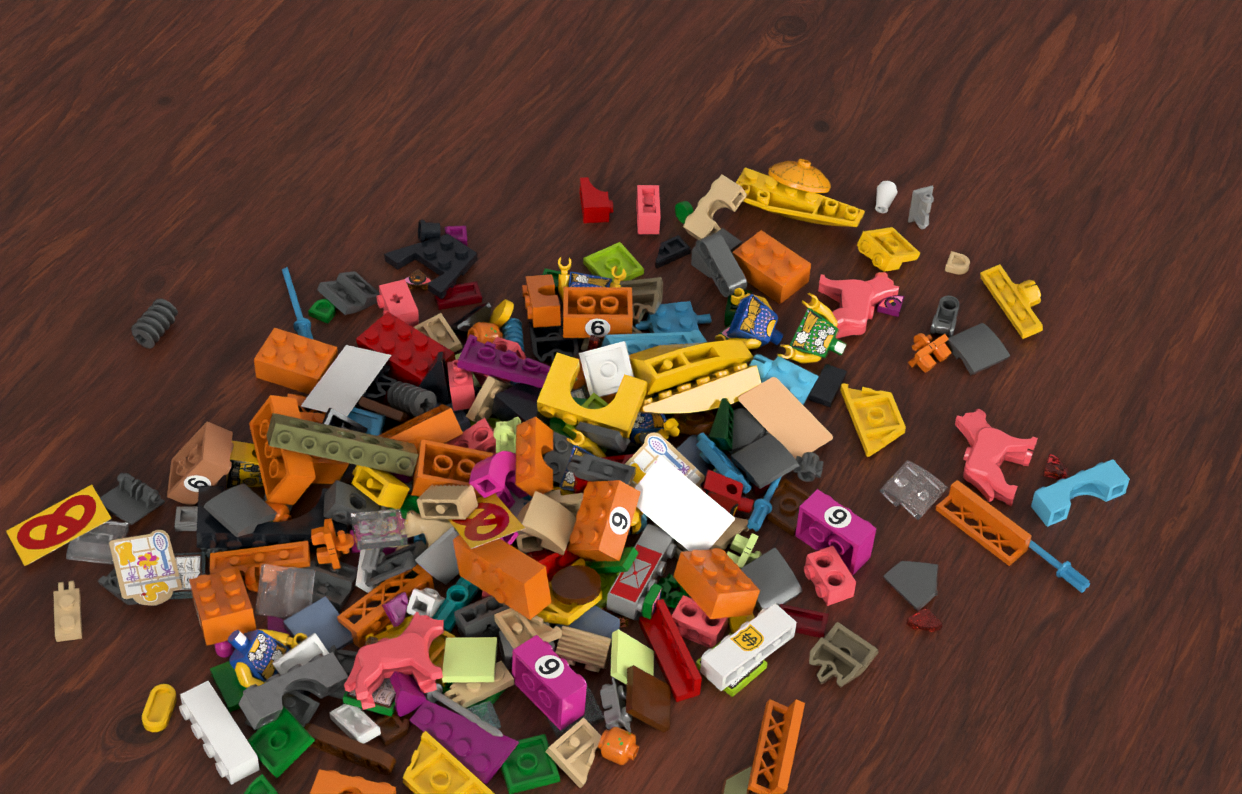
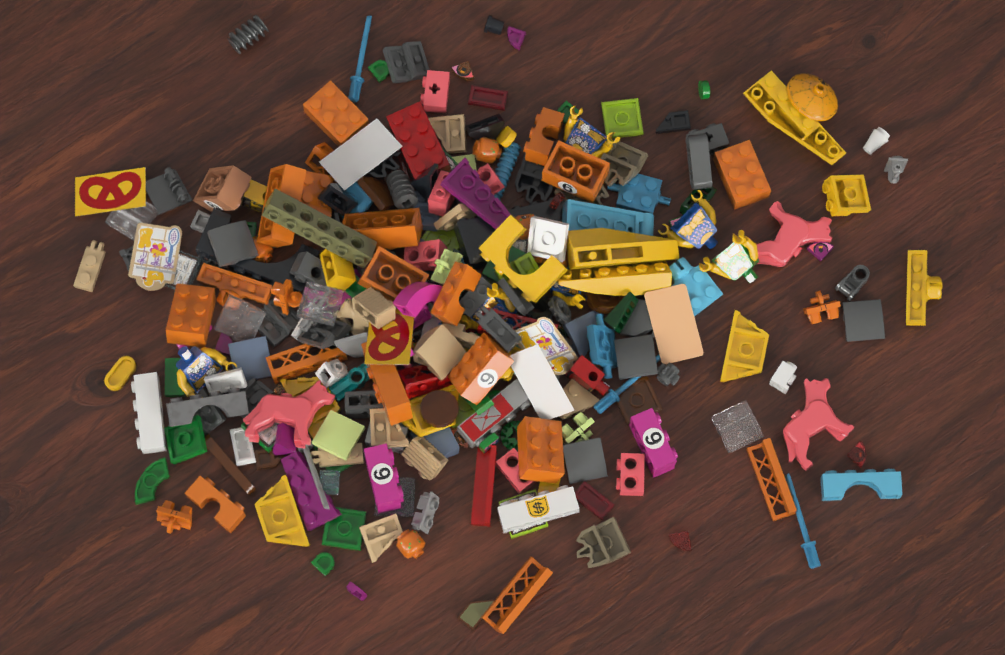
camera: 30 degrees right, 25 degrees up
(396, 608) = (308, 369): magenta tile -> none
(442, 255) = (493, 55): black wing -> none
(594, 203) = (636, 53): red arch -> none
(629, 652) = (450, 485): yellowish green tile -> none
(648, 209) = (673, 78): coral brick -> none
(648, 698) = (447, 519): reddish brown tile -> none
(723, 194) = (709, 109): tan arch -> none
(827, 385) = (727, 304): black tile -> none
(914, 582) = (692, 506): dark grey slope -> none
(931, 426) = (784, 376): none -> white brick
(957, 263) = (897, 231): tan tile -> none

